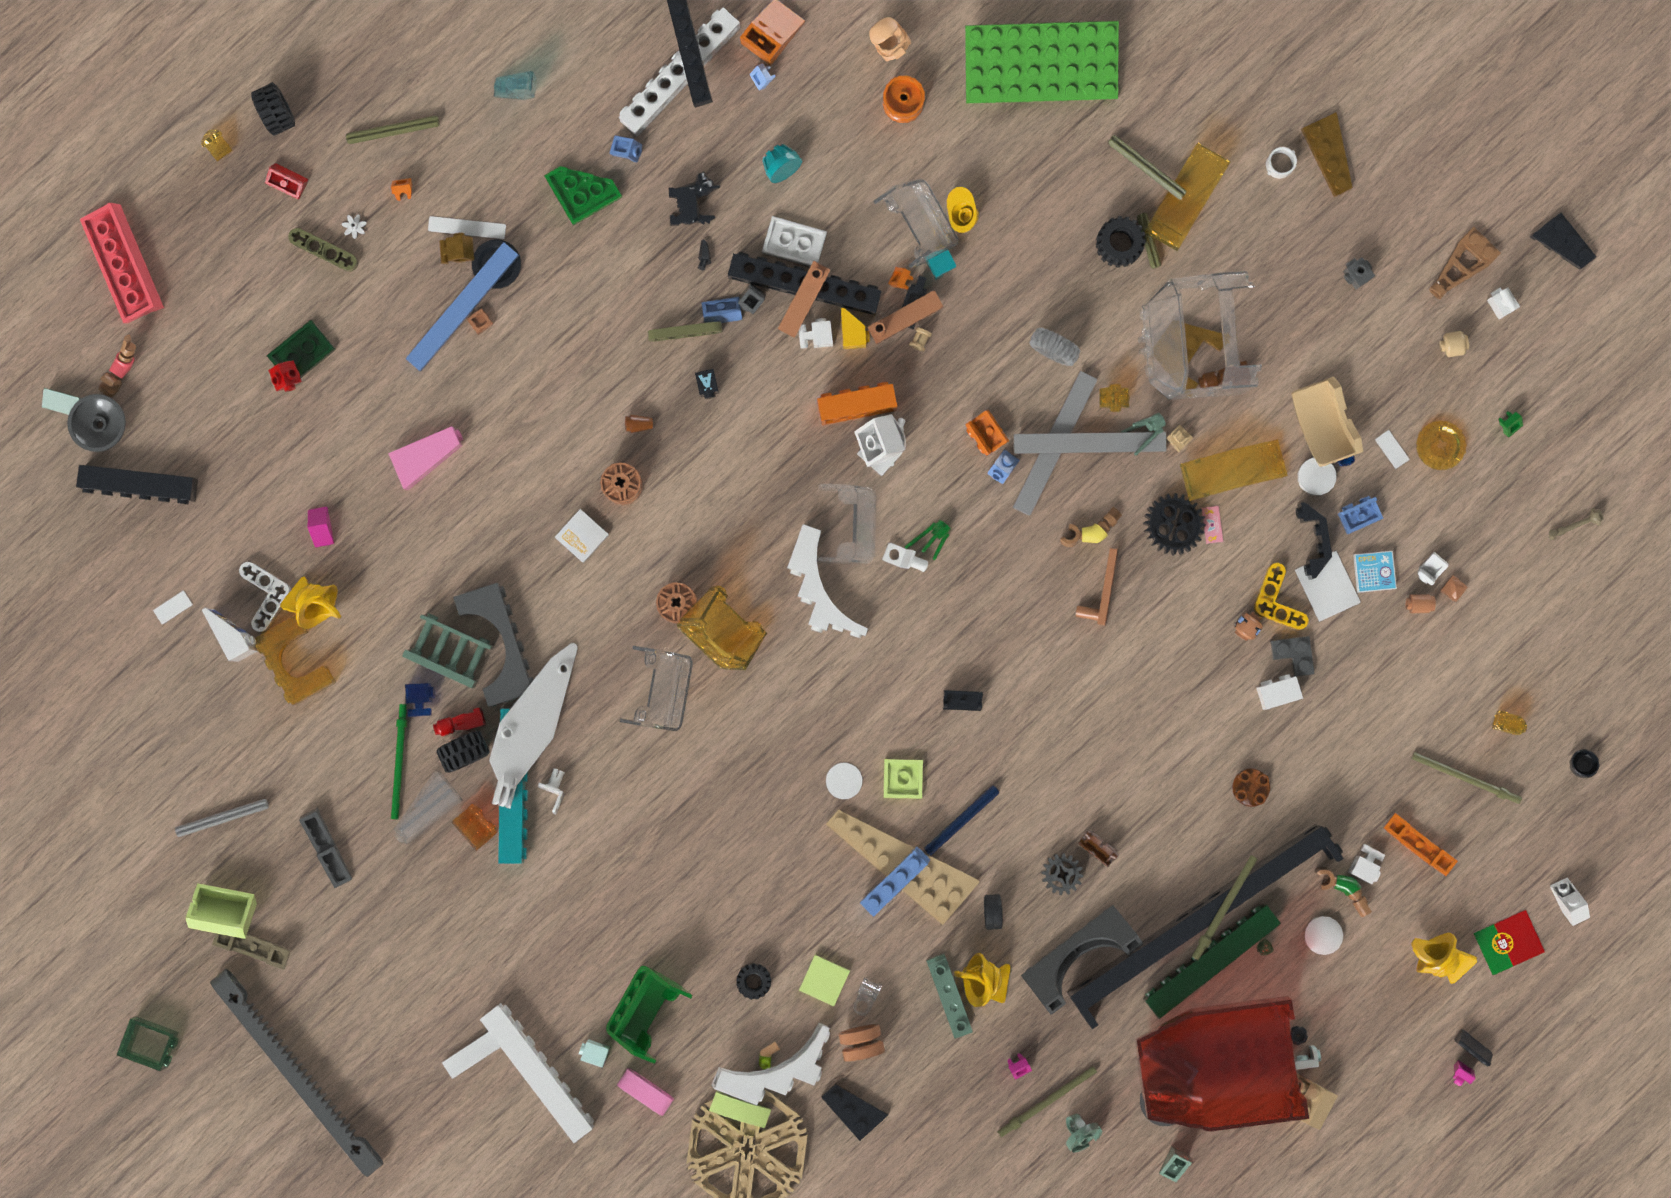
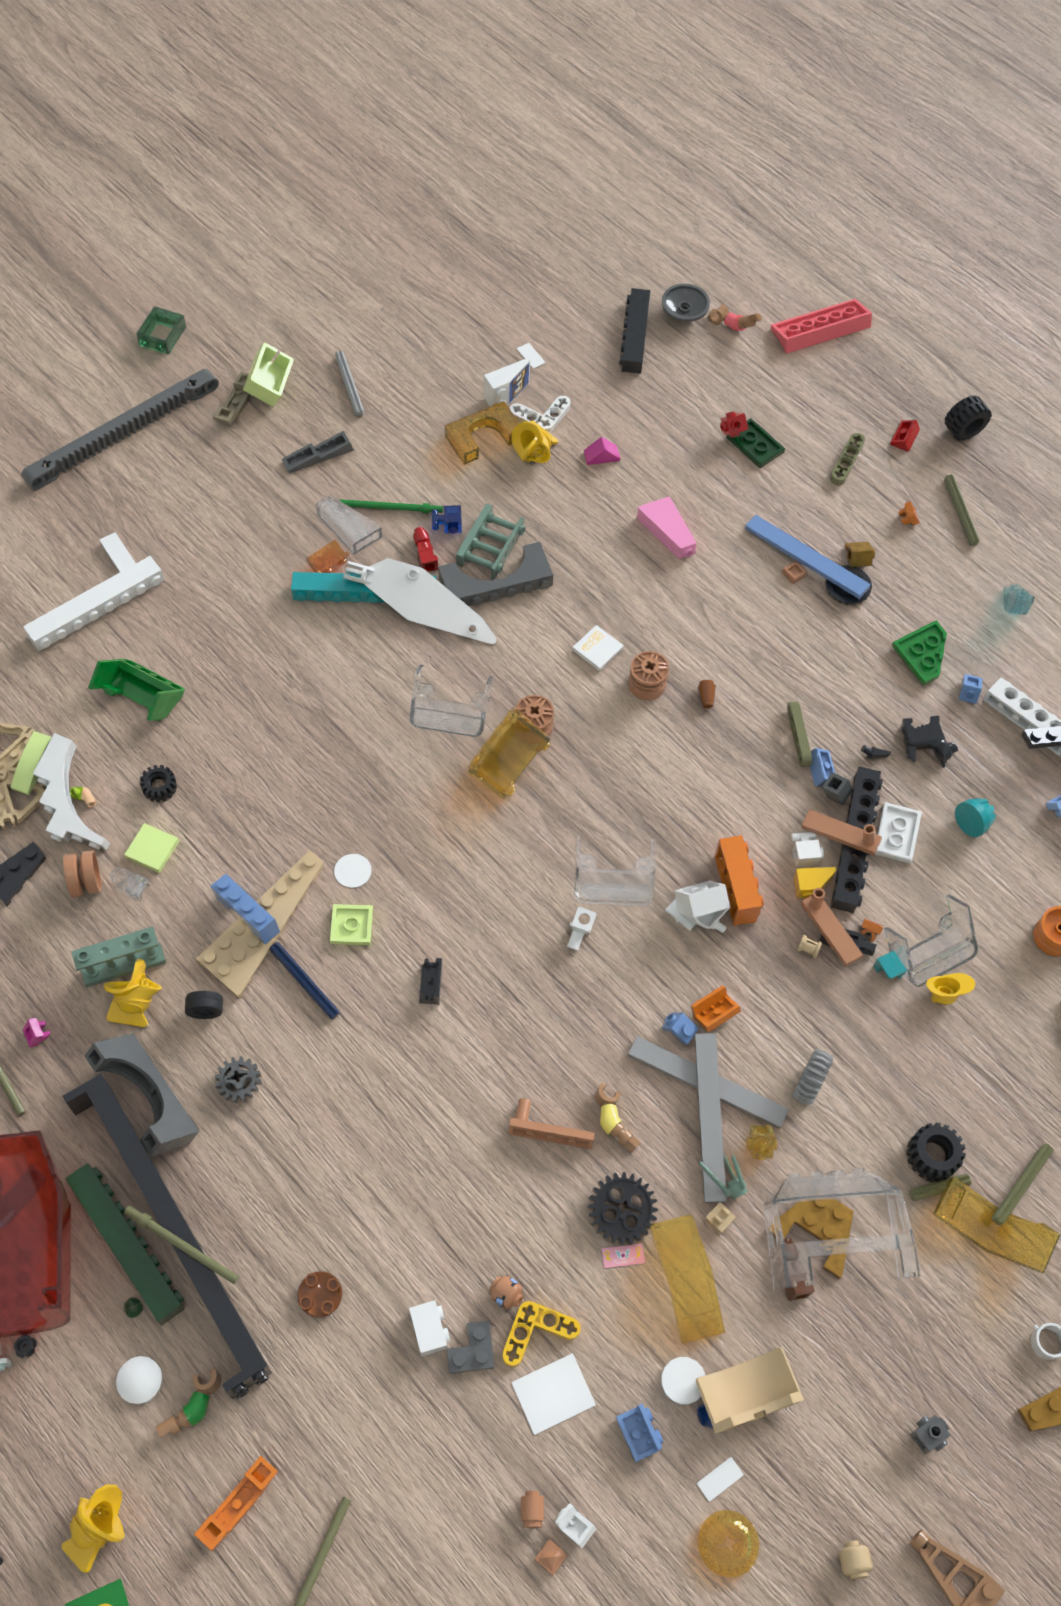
camera: 85 degrees right, 25 degrees down
(58, 401) = (704, 280): slope -> none
(216, 144) = (930, 385): clear yellow tile -> none
(357, 228) = (871, 481): white plant -> none
(462, 751) = (397, 542): black tyre -> none
(470, 228) = (880, 565): white sticker -> none
(553, 787) = (361, 619): white bracket -> none
(594, 1053) = (106, 647): light aqua brick -> none
(645, 1091) = (63, 689): bright pink beam -> none
(707, 384) = (749, 751): black brick -> none
(825, 612) = (525, 851): white arch -> none
(940, 530) = (609, 961): green plant -> none
(1092, 843) = (262, 1118): reddish brown hinge -> none
(1308, 514) = (577, 1375): black slope -> none
(1364, 867) = (214, 1431): white brick -> none
(1374, 571) = (571, 1452): medium azure tile -> none

